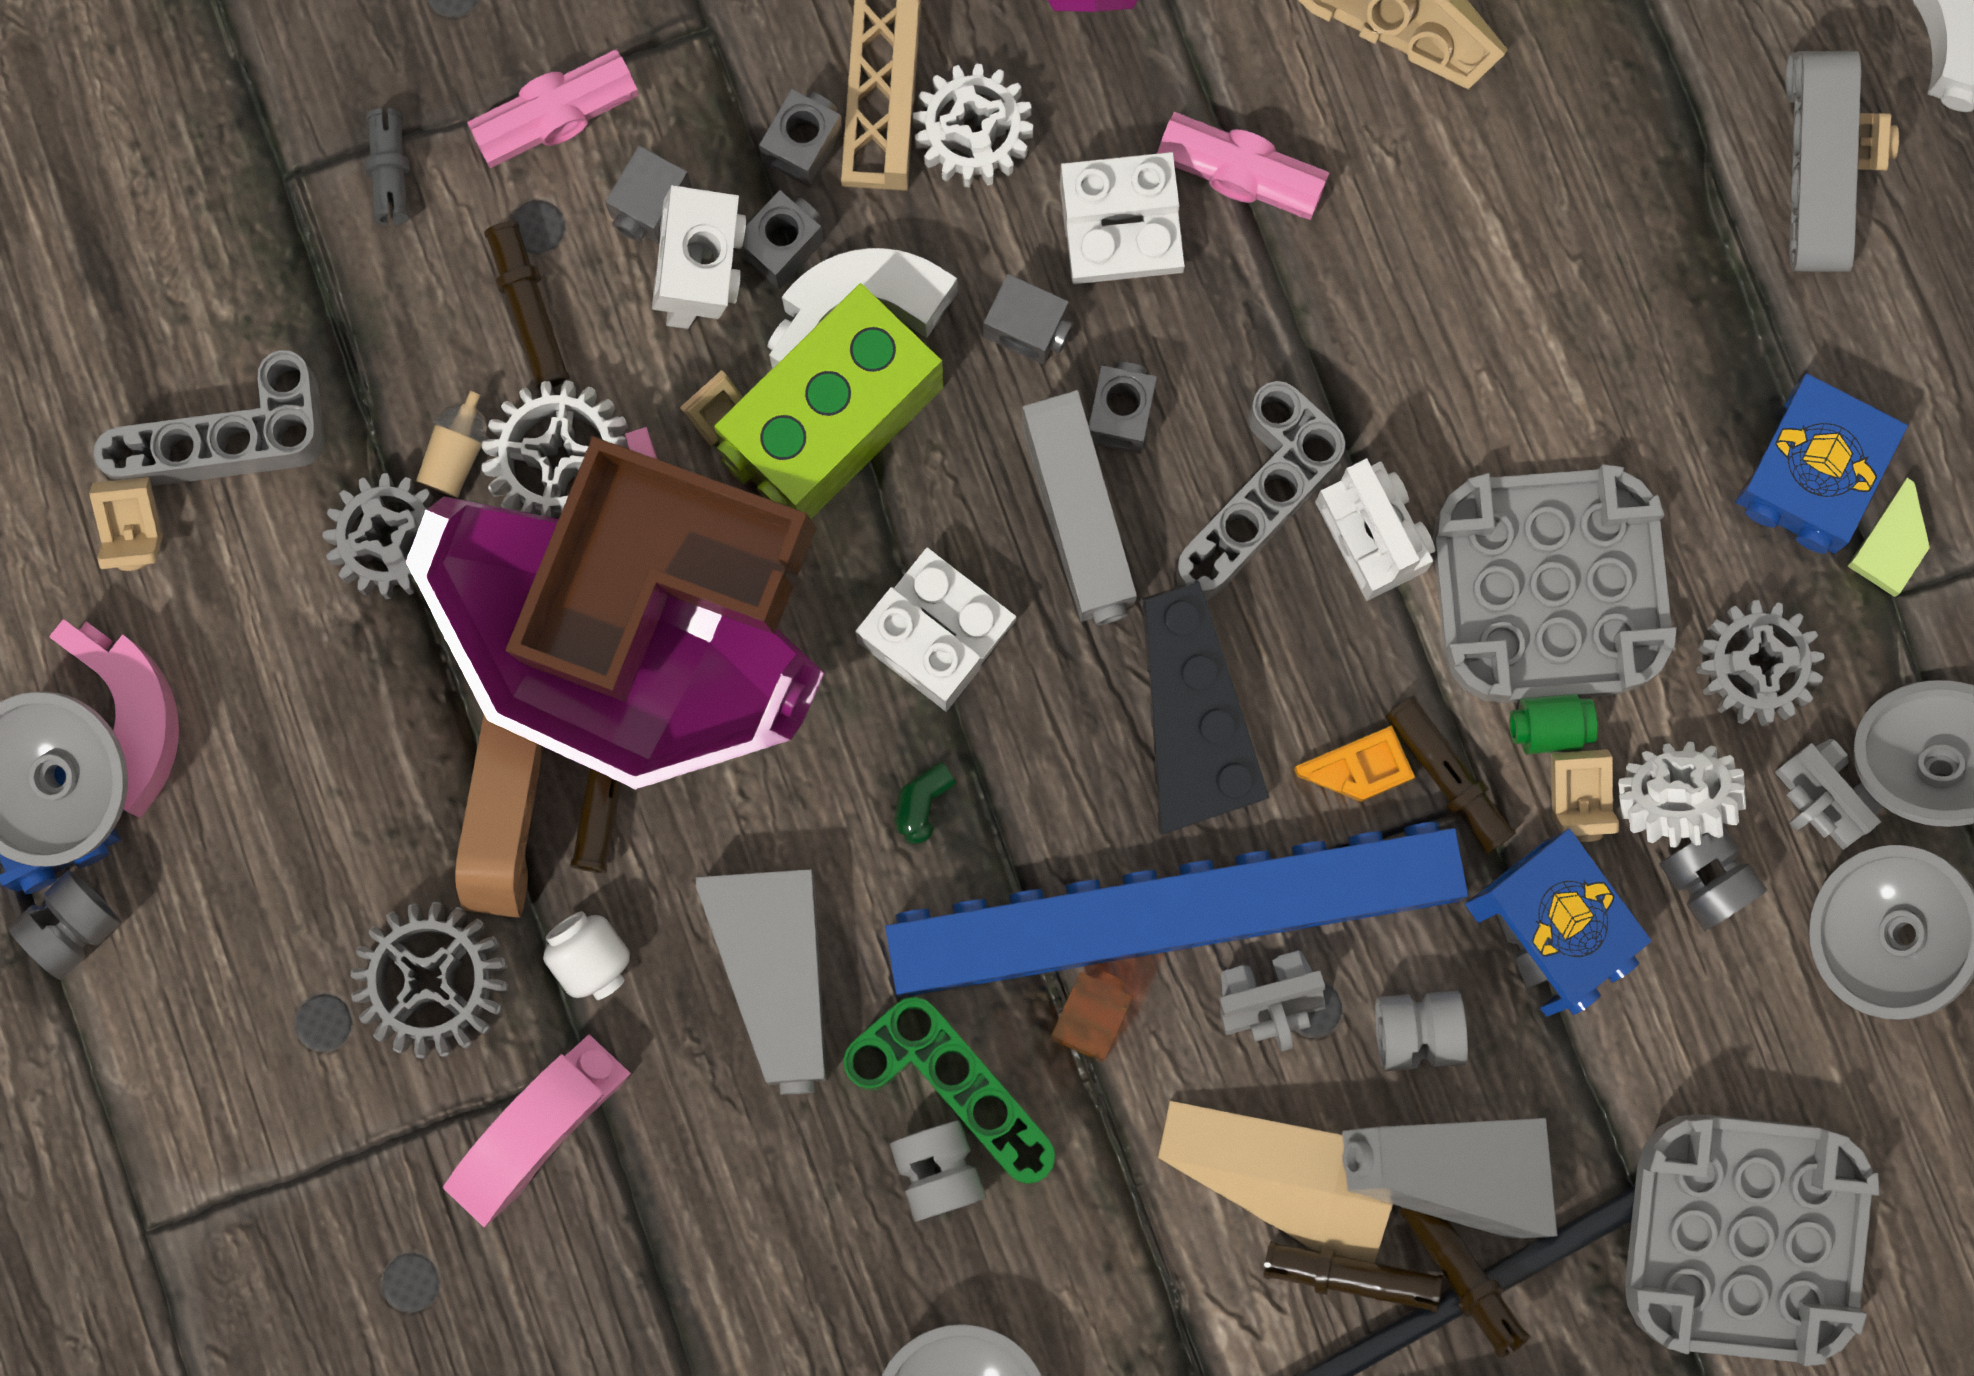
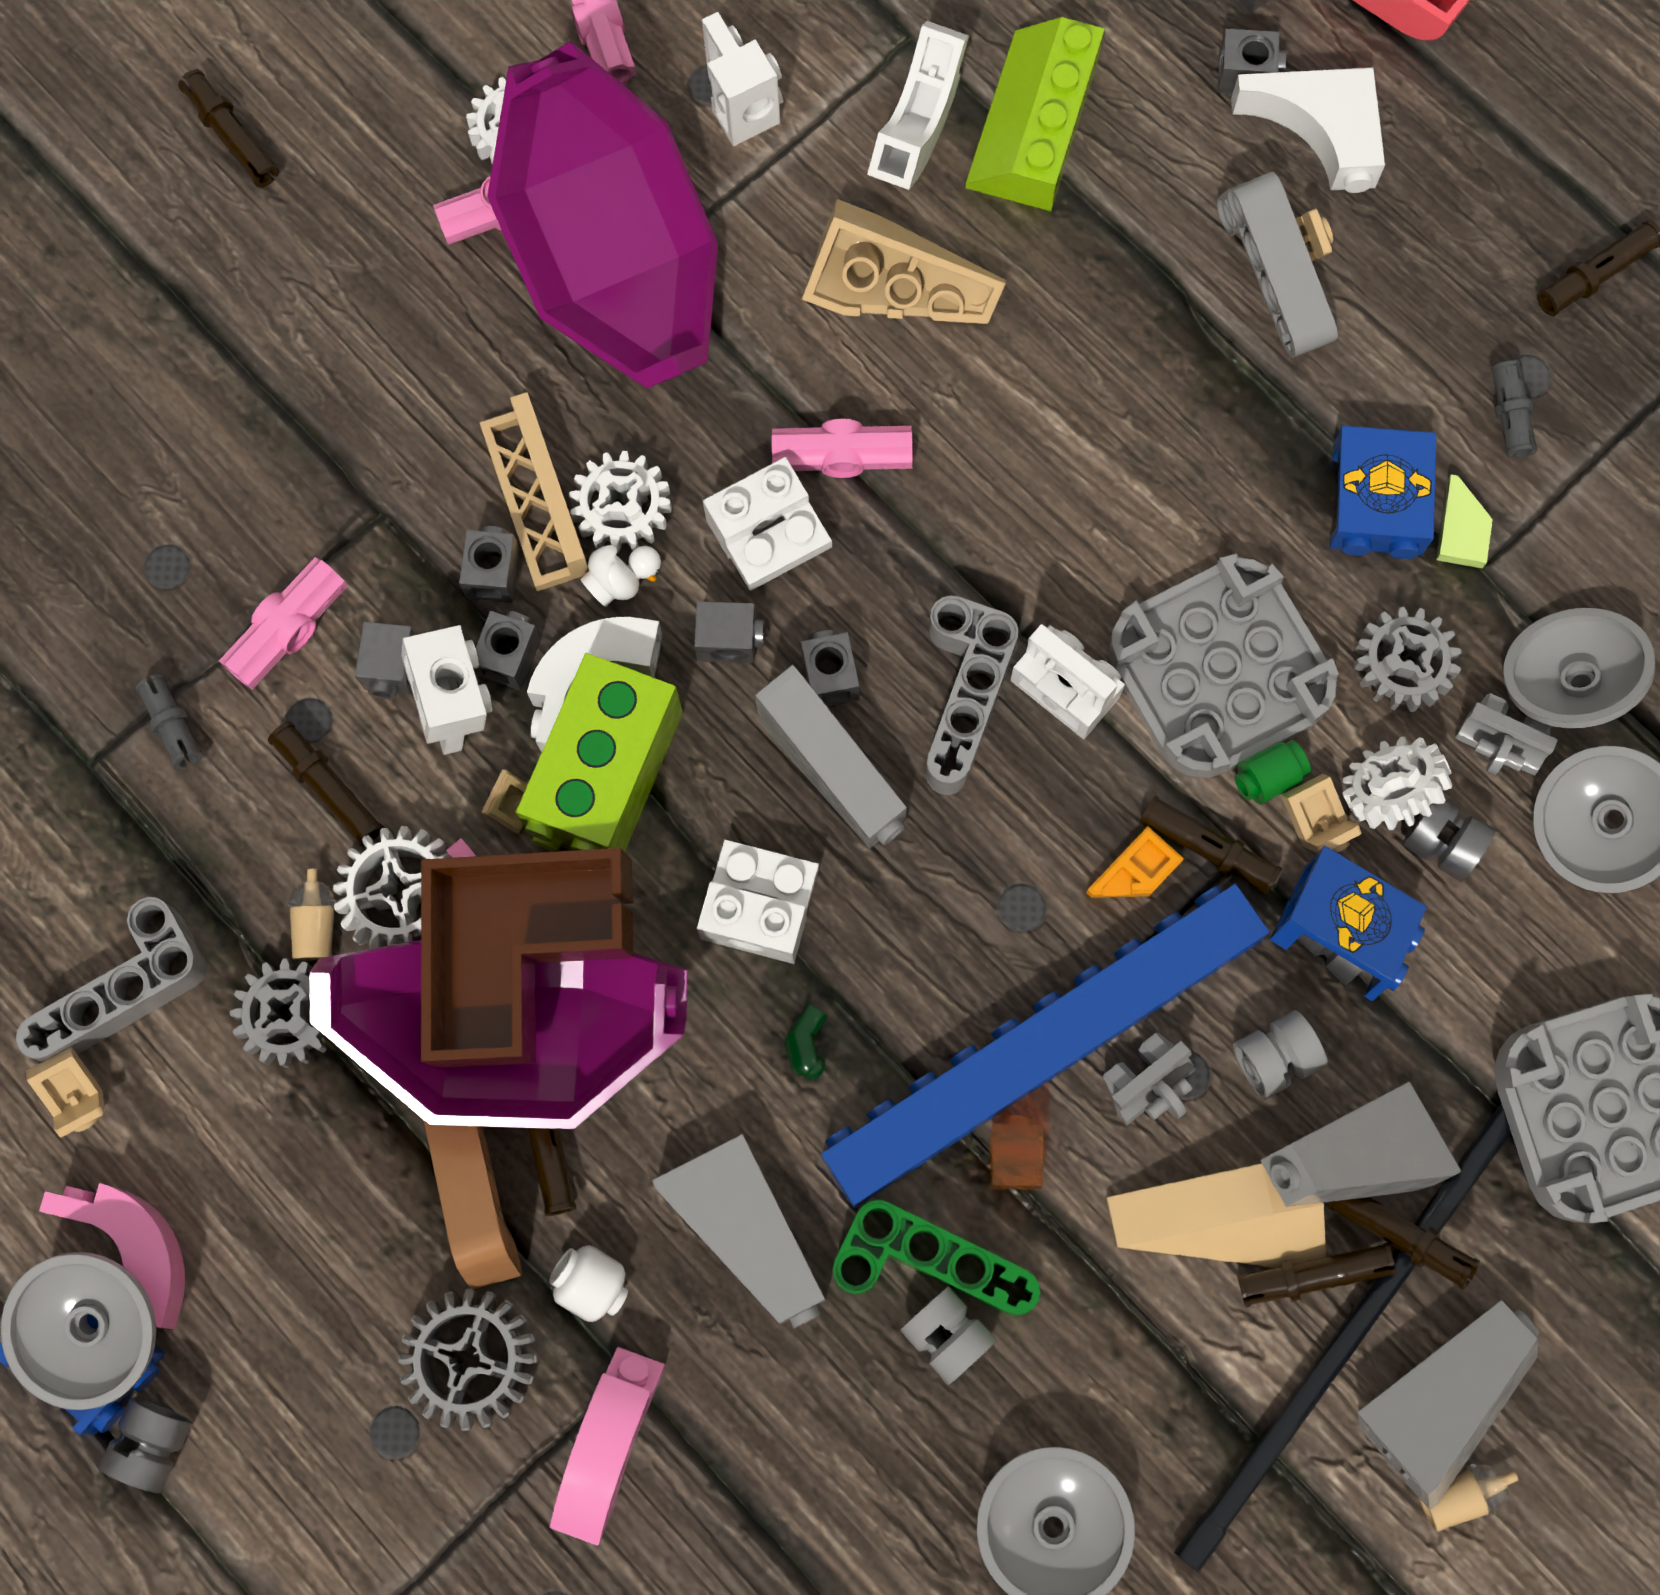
camera: 20 degrees left, 5 degrees down
(928, 207) = (613, 579): none -> white animal
(1199, 731) = (1002, 894): black wing -> none

